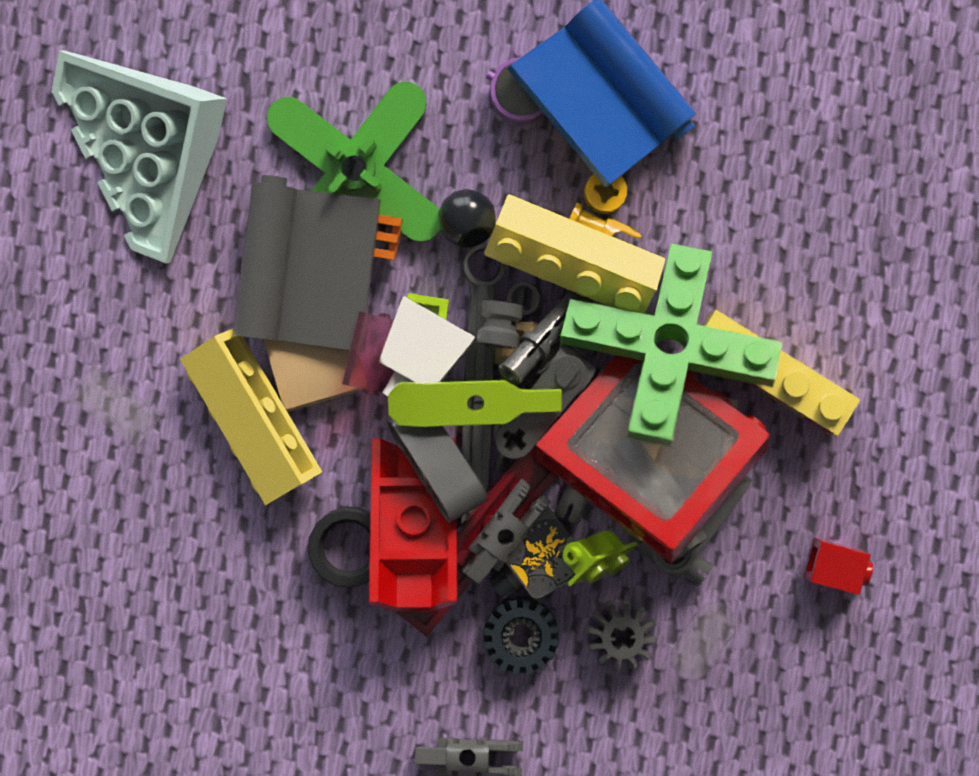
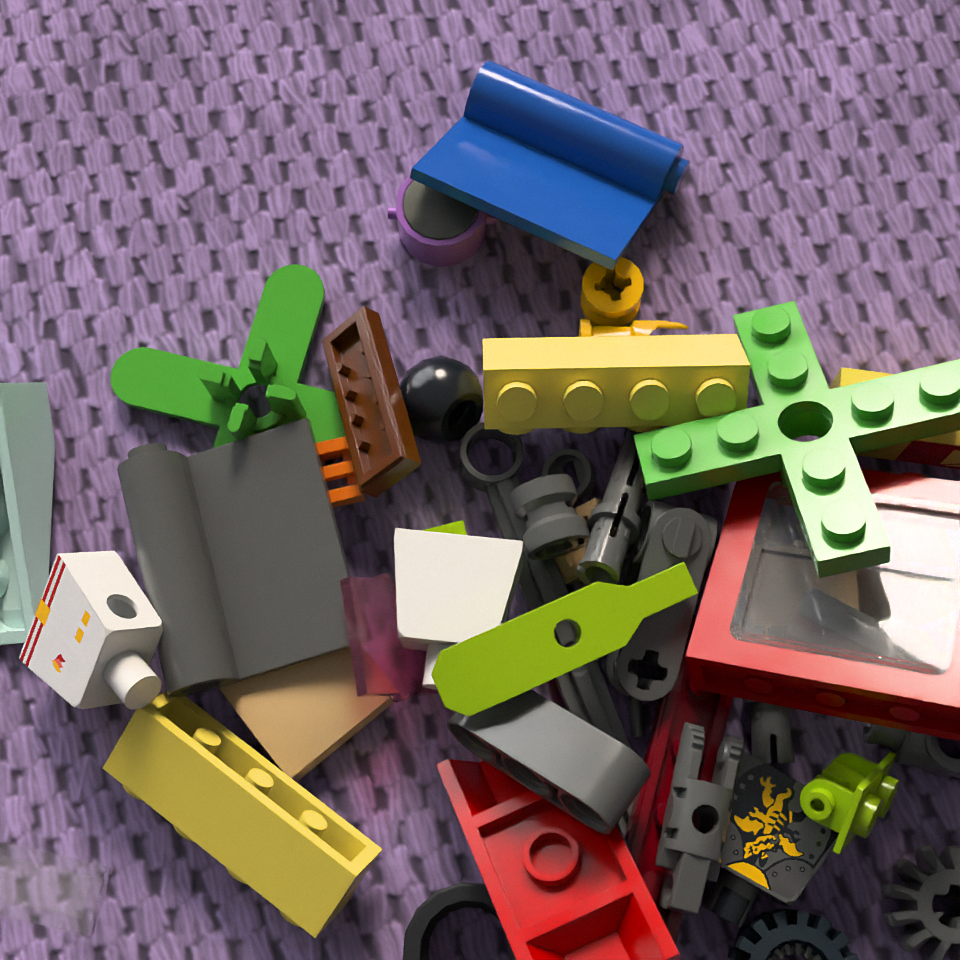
camera: 20 degrees left, 15 degrees down
(203, 280) = (94, 633): none -> white torso
(422, 203) = (370, 403): none -> reddish brown plate

